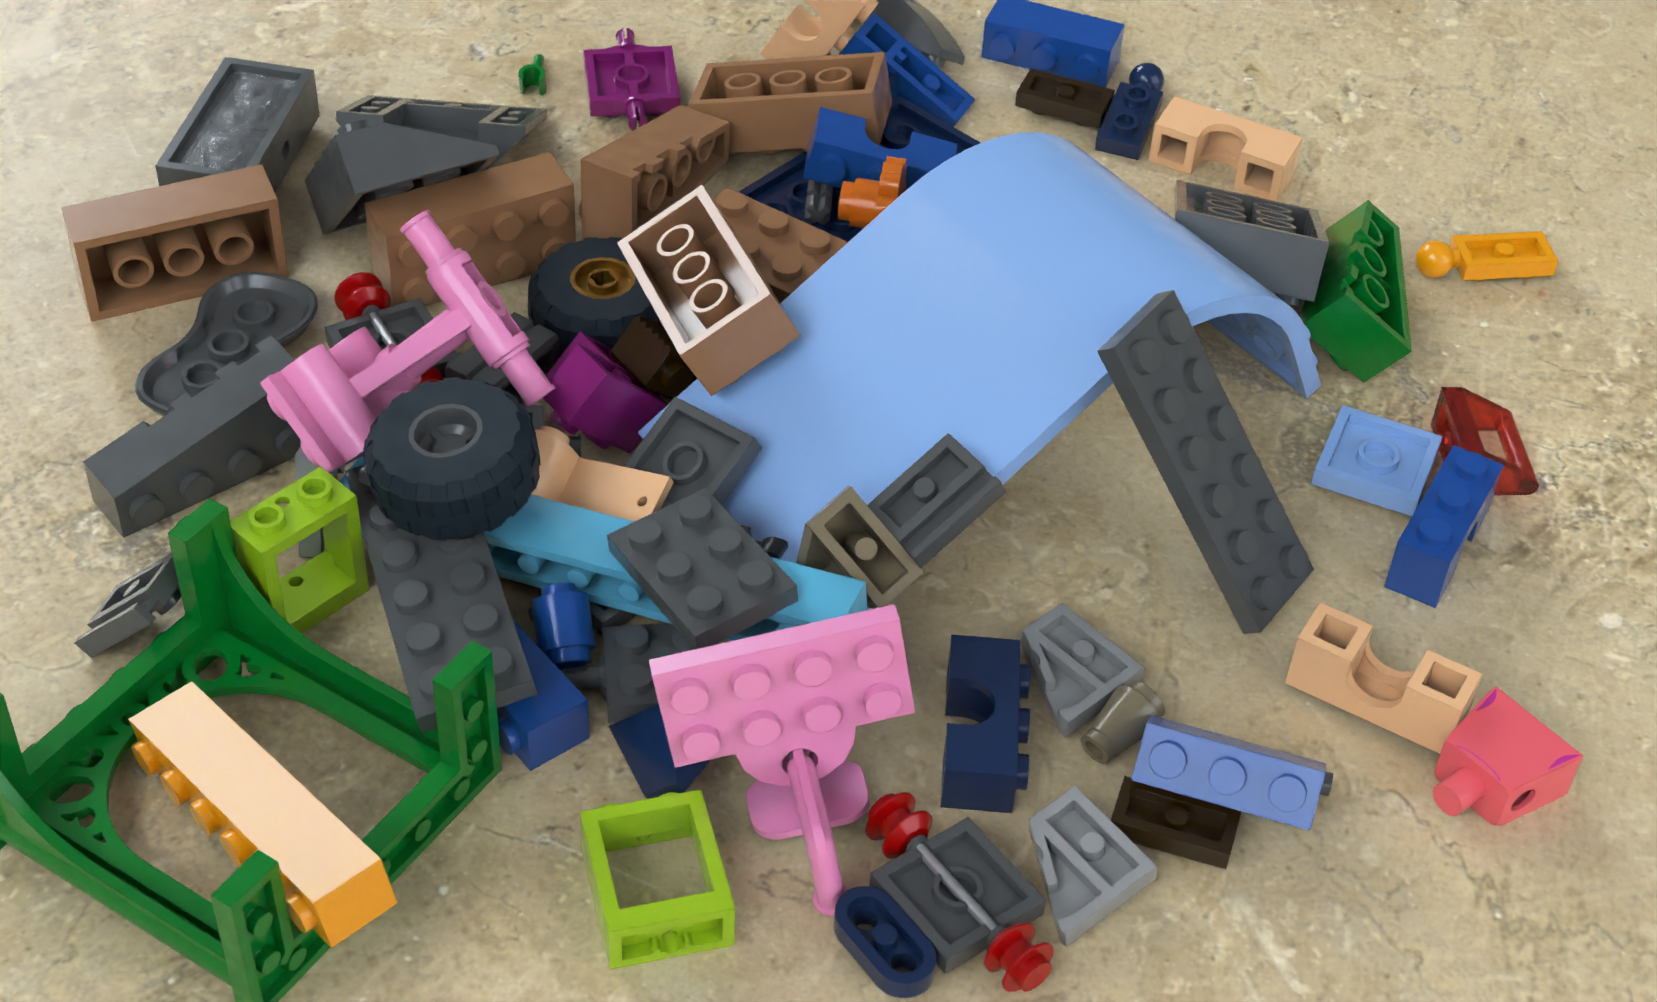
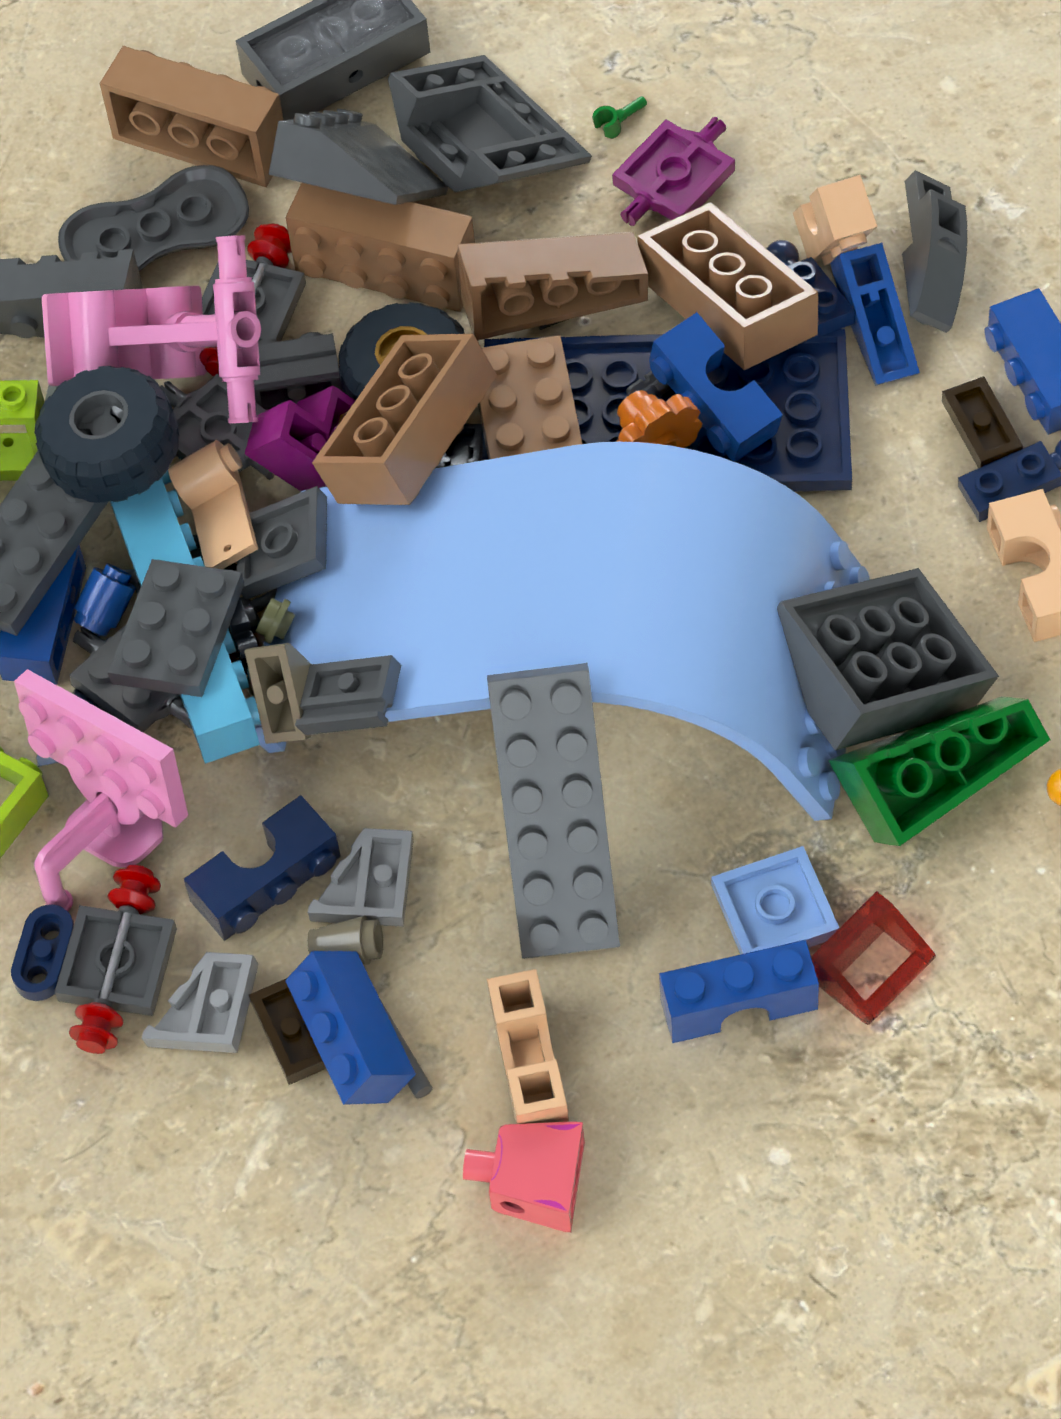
camera: 55 degrees right, 15 degrees up
(765, 514) = (275, 620): none -> olive plate

